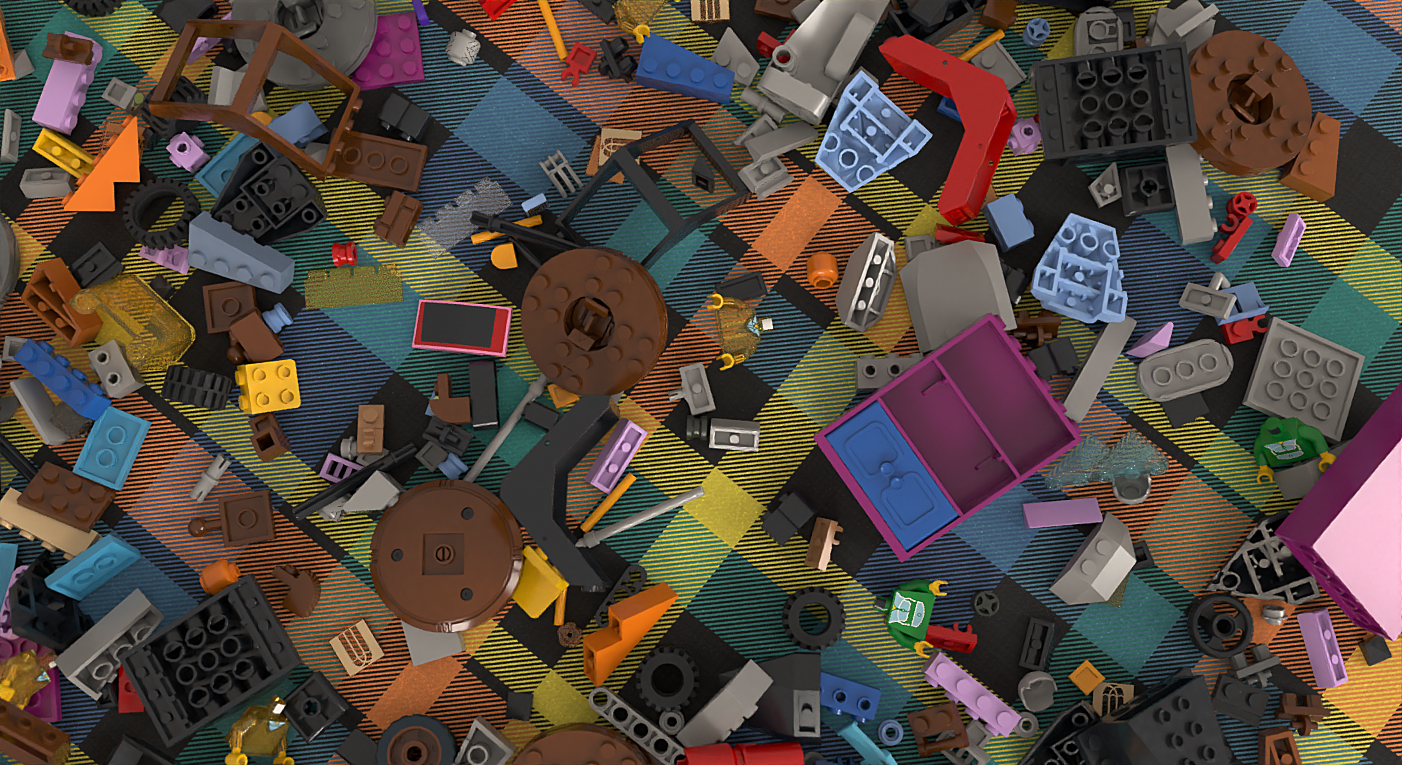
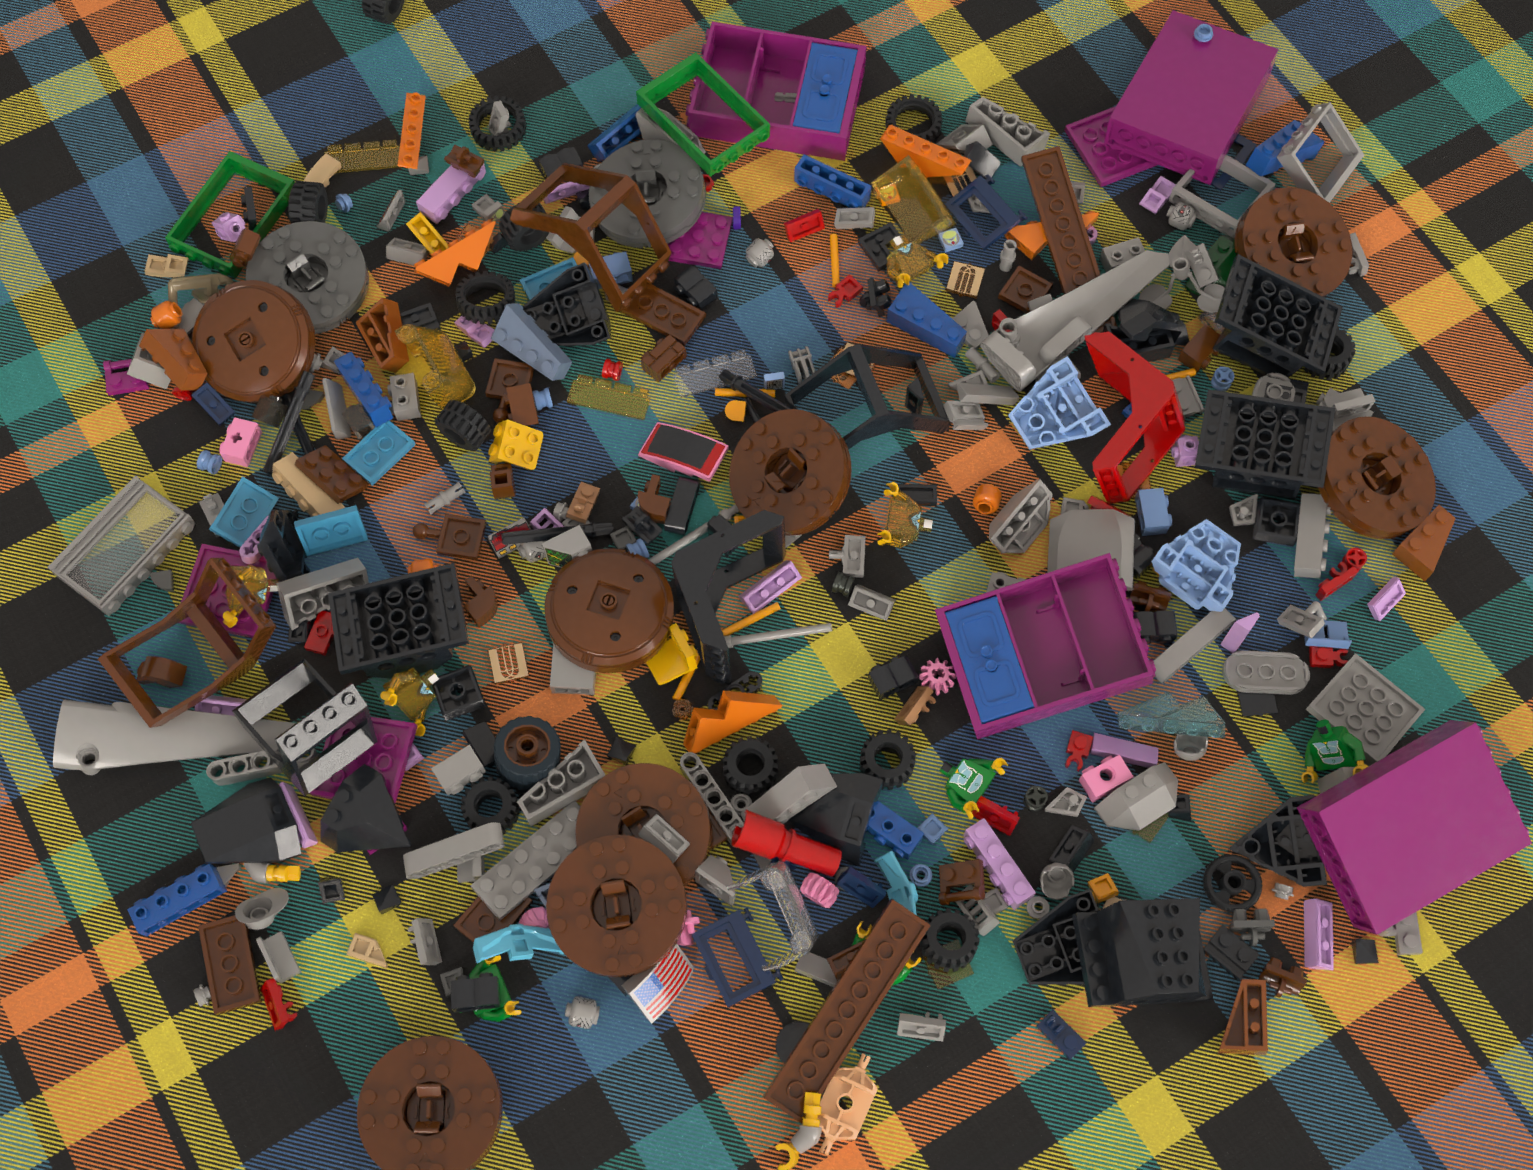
camera: 20 degrees right, 15 degrees down
(187, 152) = (521, 261): lavender brick -> none
(308, 487) = (496, 542): none -> slope
(831, 493) = (932, 670): none -> bright pink gear
(885, 675) = (933, 829): none -> medium blue tile
(1011, 524) = (1078, 746): none -> red plate
(1019, 595) = (1067, 803): none -> light grey piece
(1066, 549) = (1097, 787): none -> bright pink brick

